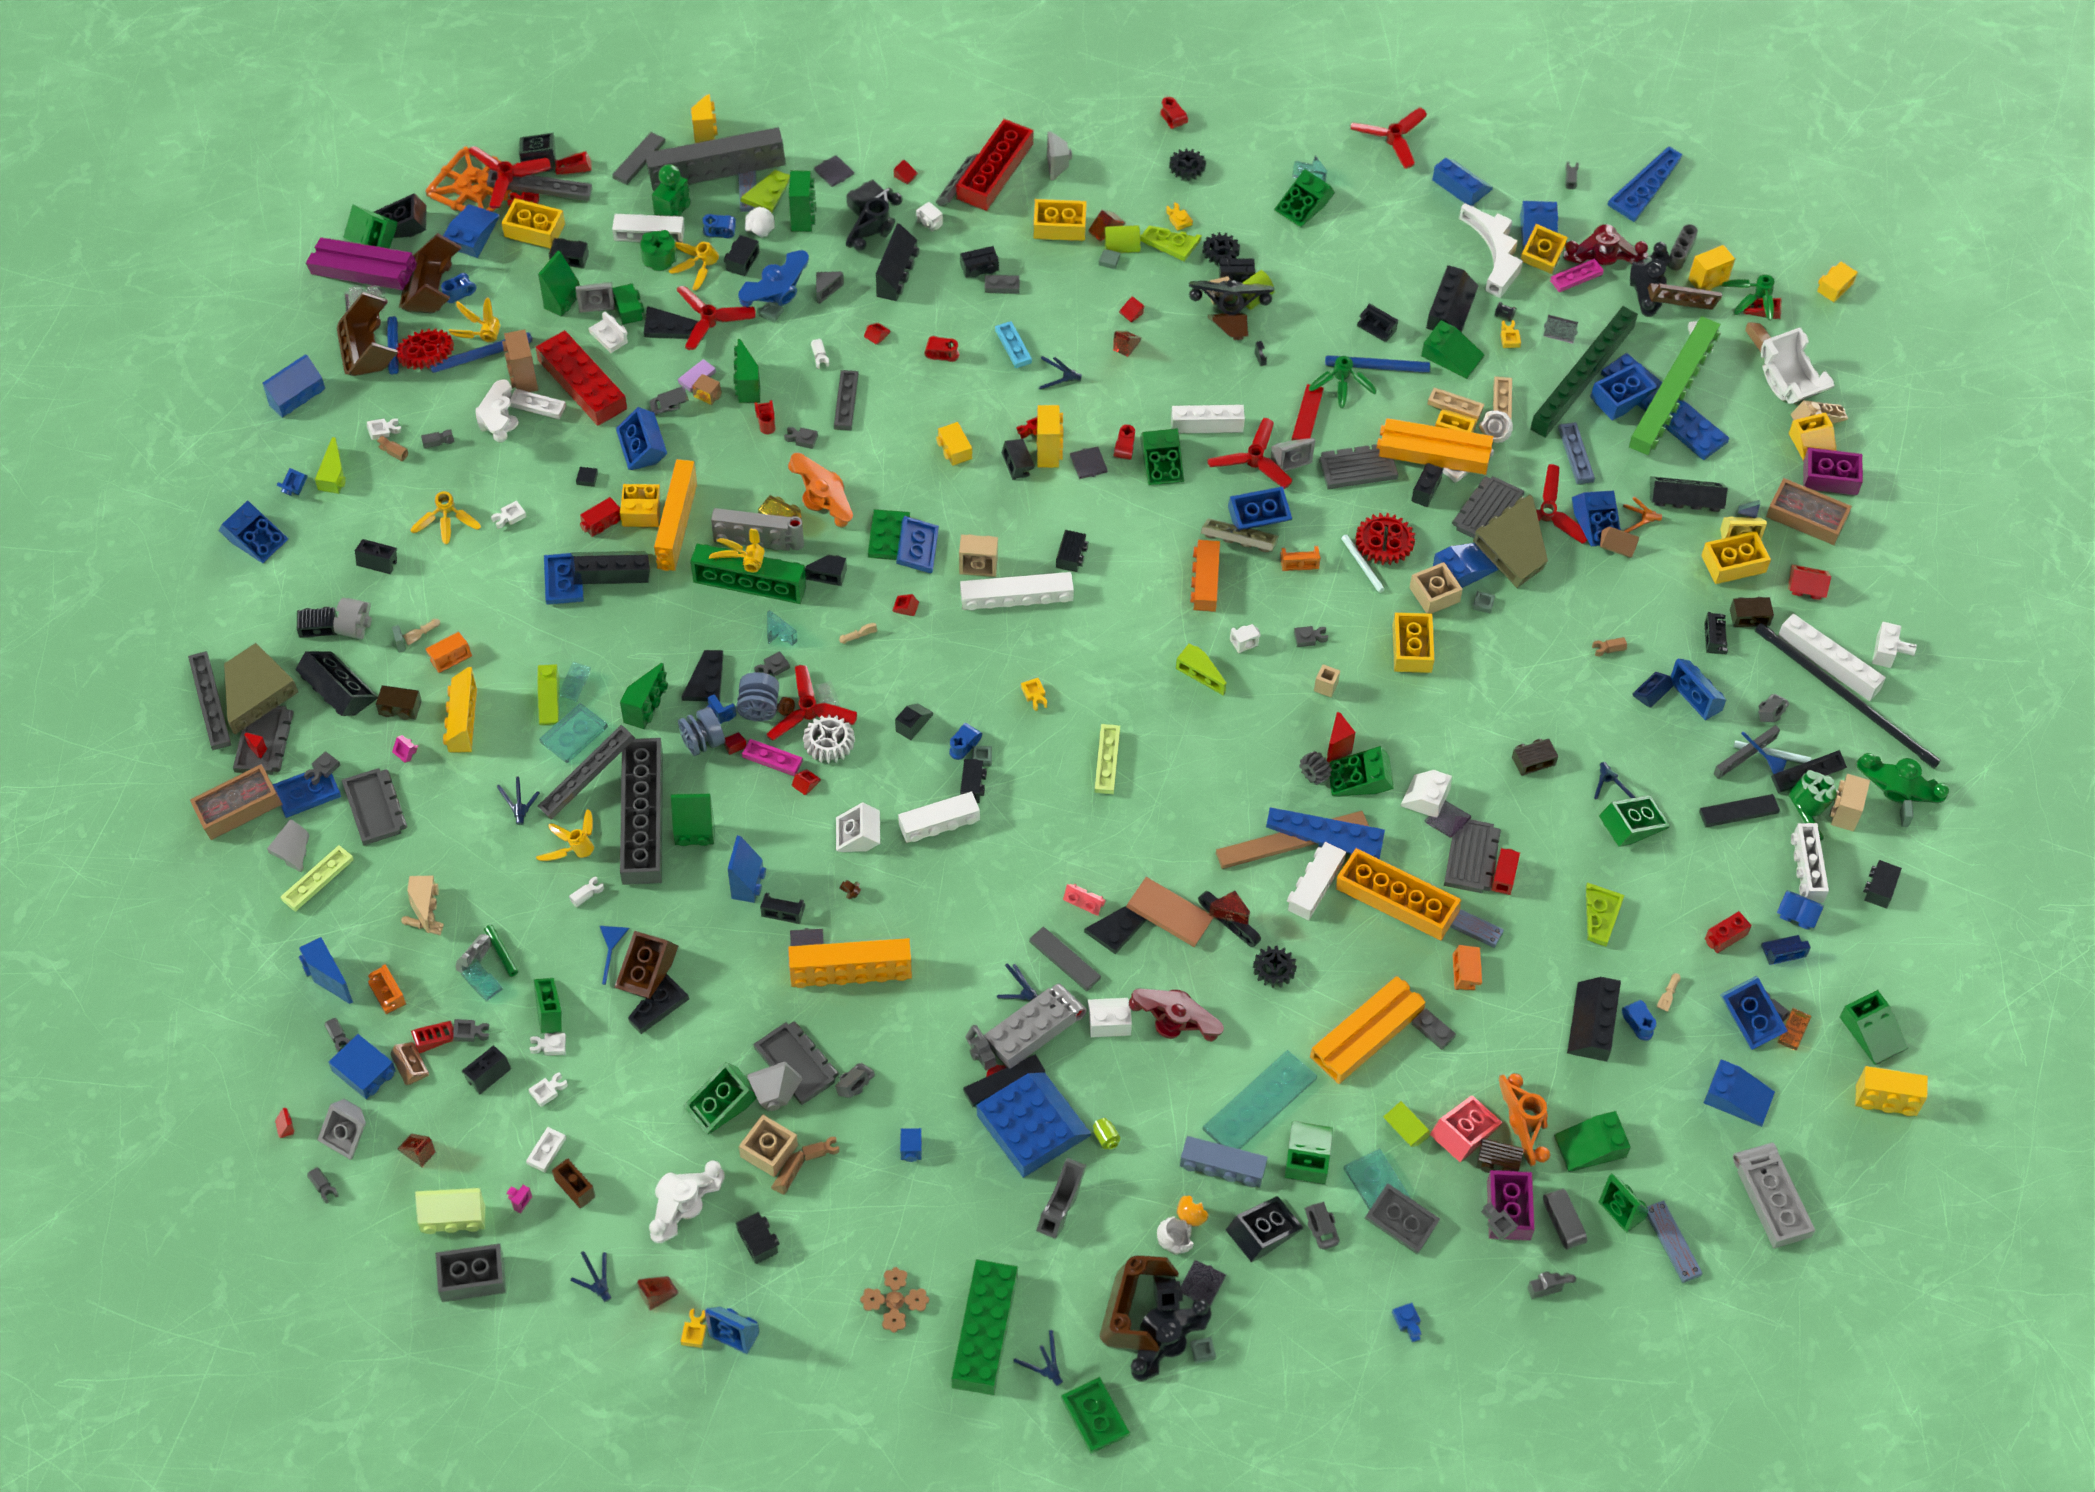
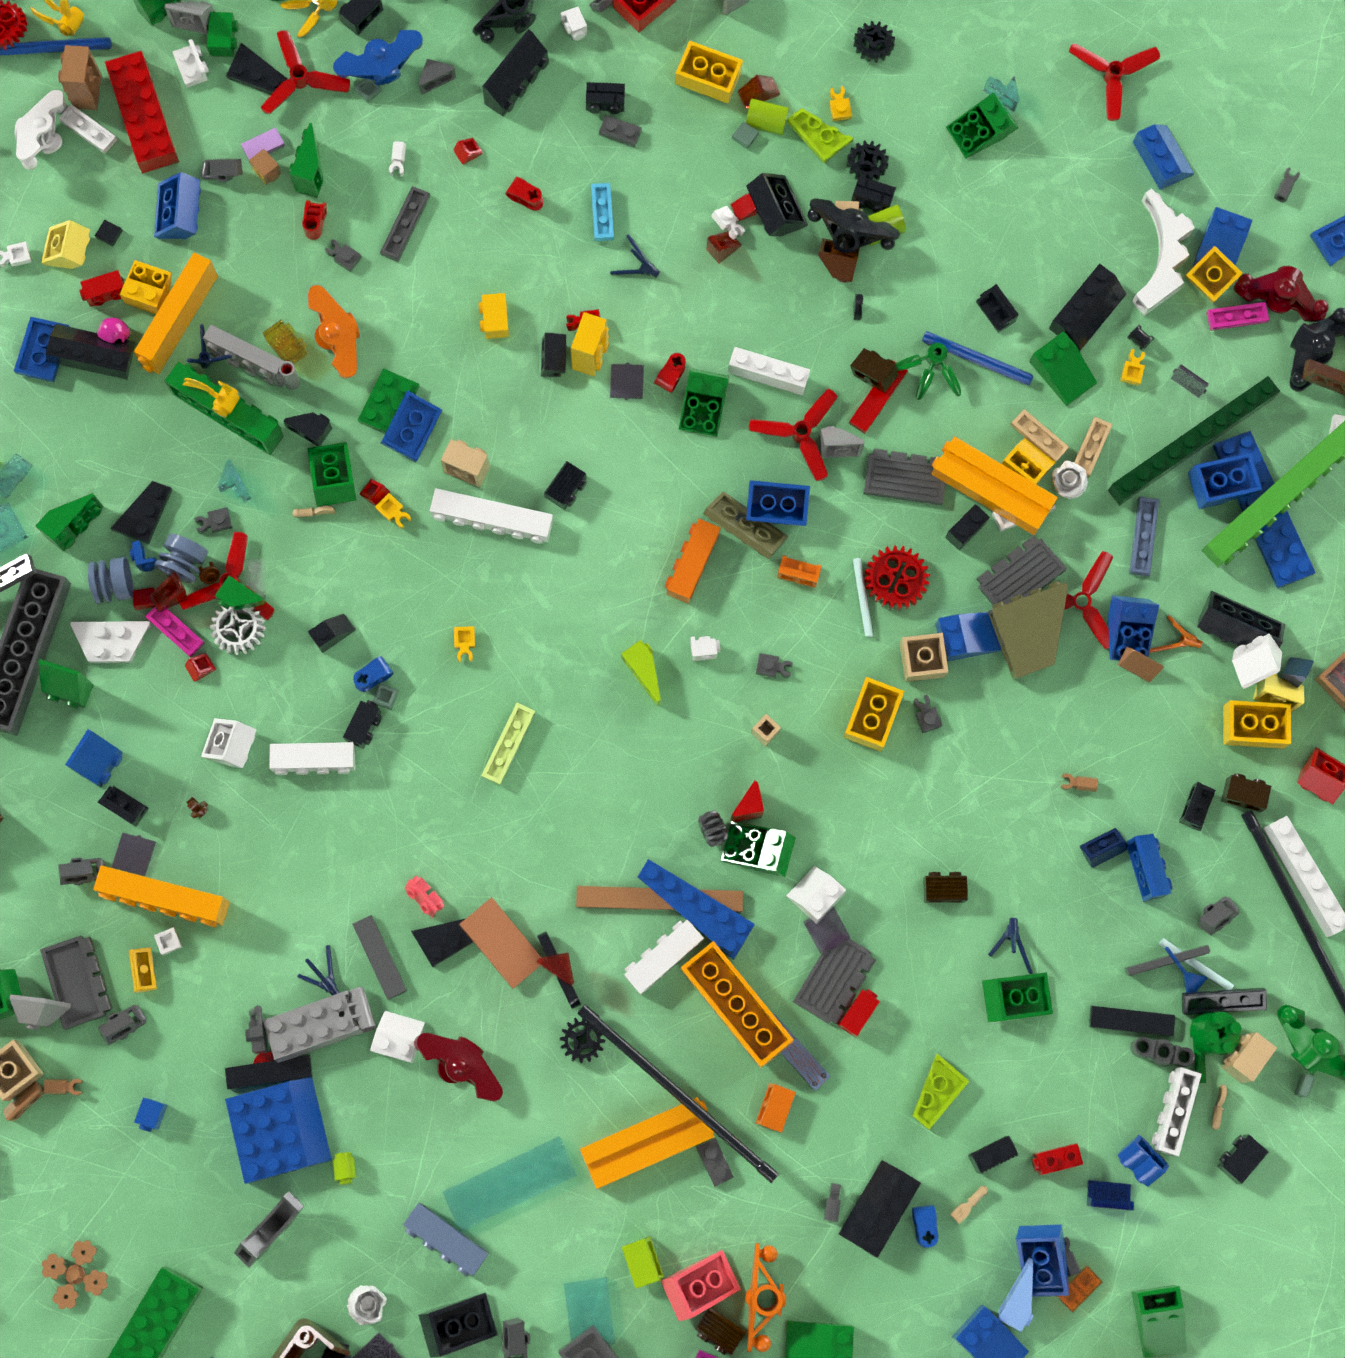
camera: 15 degrees right, 20 degrees up
(553, 494) = (66, 245): none -> light yellow slope
(623, 543) = (113, 329): none -> dark pink hair
(713, 539) = (204, 357): none -> dark blue plant
(722, 781) = (110, 640): none -> white wing
(759, 725) = (168, 593): none -> clear red slope
(764, 970) = (79, 871): none -> dark grey piece
(823, 706) = (237, 596): none -> green slope
(855, 1031) = (142, 970): none -> yellow brick
(863, 600) = (331, 474): none -> green slope
(868, 1002) = (168, 941): none -> white plate
(926, 611) = (391, 509): none -> yellow plate
(1122, 322) = (727, 220): none -> white plate
(1158, 299) = (776, 204): none -> black slope
(1190, 1212) = (388, 1288): light orange hair -> none
(1296, 392) = (873, 368): none -> dark brown brick
(1308, 1152) = (534, 1256): green slope -> none
(1457, 635) = (927, 717): none -> dark grey plate
(1477, 1007) = (761, 1166): none -> black piece
(1483, 602) = (970, 685): sand green tile -> none
(1551, 1027) = (833, 1203): none -> dark grey bar
(1671, 945) = (993, 1155): none -> black brick
(1712, 507) = (1257, 660): none -> white slope
(1748, 1046) = (1017, 1306): none -> light blue slope
(1766, 823) = (1172, 1055): none -> dark grey piece
(1847, 866) = (1216, 1121): none -> tan piece

